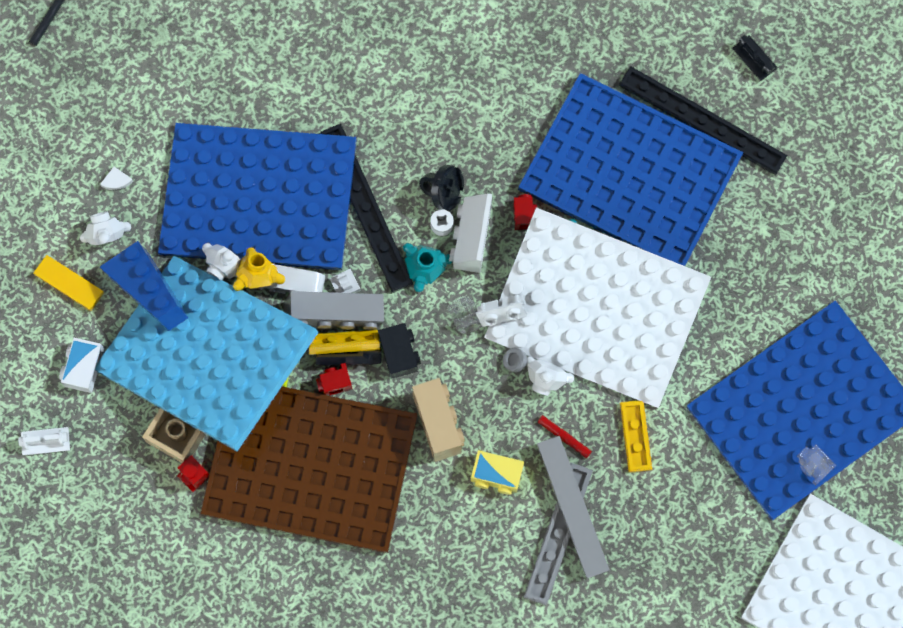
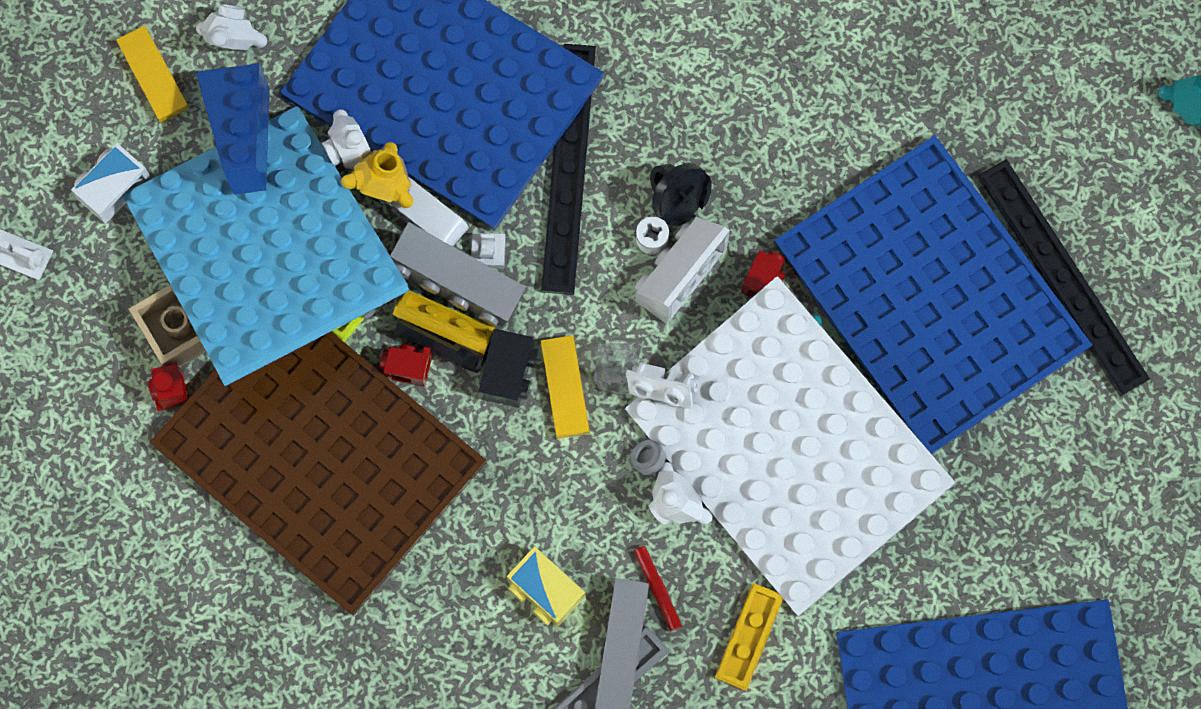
camera: 30 degrees right, 0 degrees up
(424, 264) = (601, 277): teal rock -> none
(438, 419) = (505, 480): tan brick -> none
(439, 343) = (565, 387): none -> yellow tile
(754, 57) = (1177, 230): black hinge -> none

